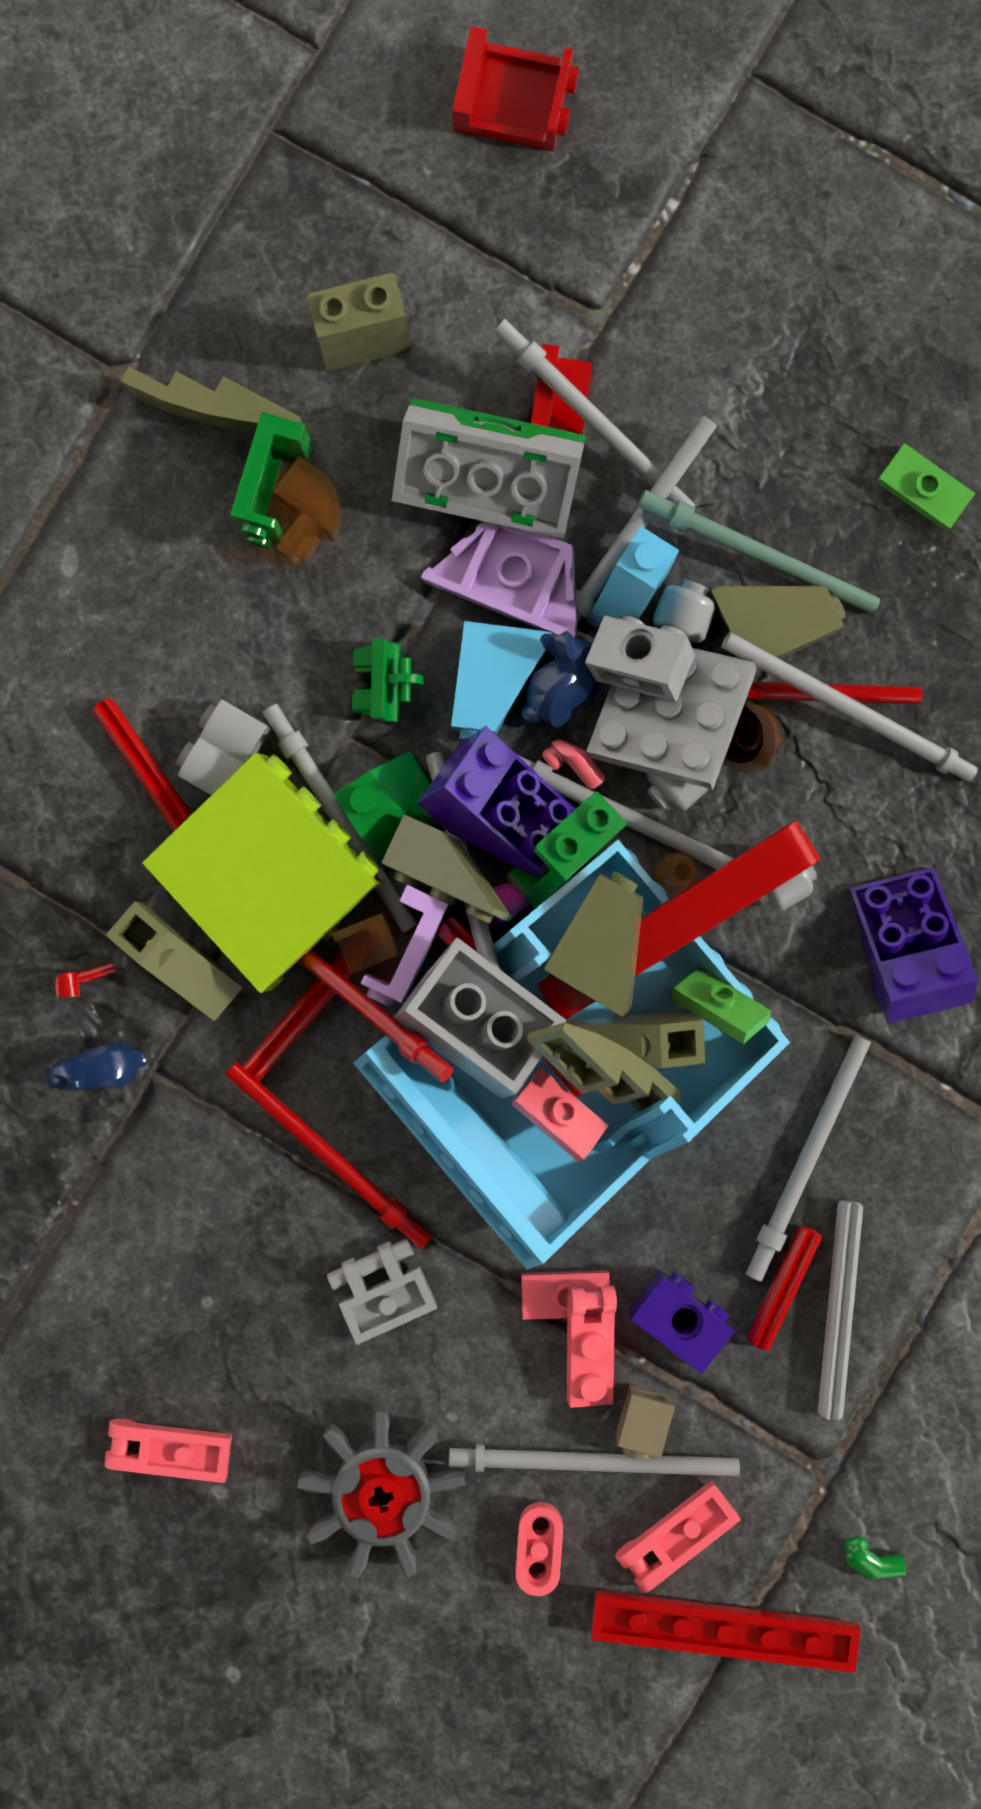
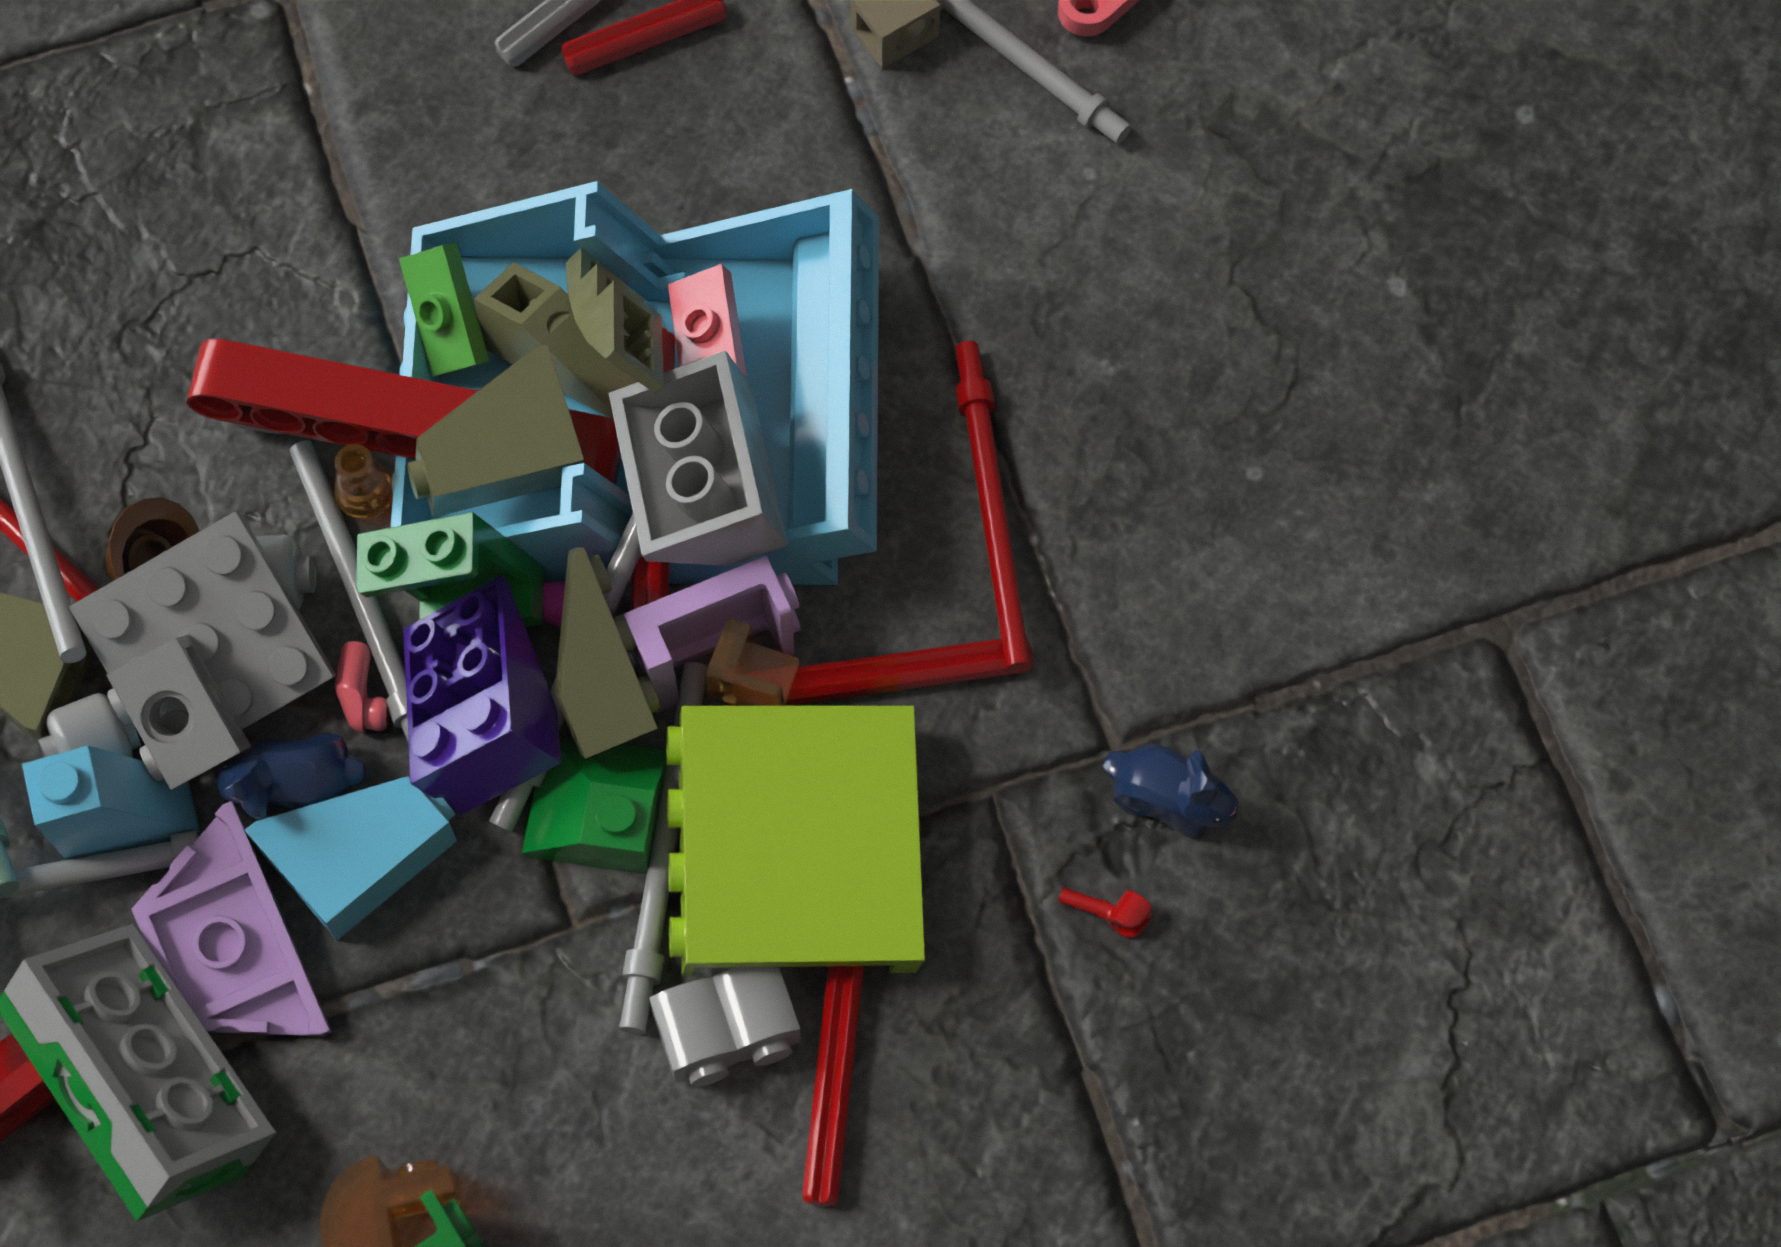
camera: 145 degrees left, 20 degrees down
(169, 1451) = (1417, 356): coral plate -> none
(174, 959) = (983, 839): olive slope -> none
(367, 1514) = (1221, 150): dark grey gear -> none
(387, 1303) = (1056, 317): light grey plate -> none
(389, 680) = (458, 971): green hips -> none
(411, 1044) = (790, 489): red bar -> none
(547, 1292) = (889, 194): coral plate -> none
(590, 1347) = (884, 118): coral plate -> none
(695, 1343) = (773, 44): dark purple brick -> none
(772, 1235) = (609, 84): light grey bar -> none
(913, 946) = (201, 230): dark purple slope -> none

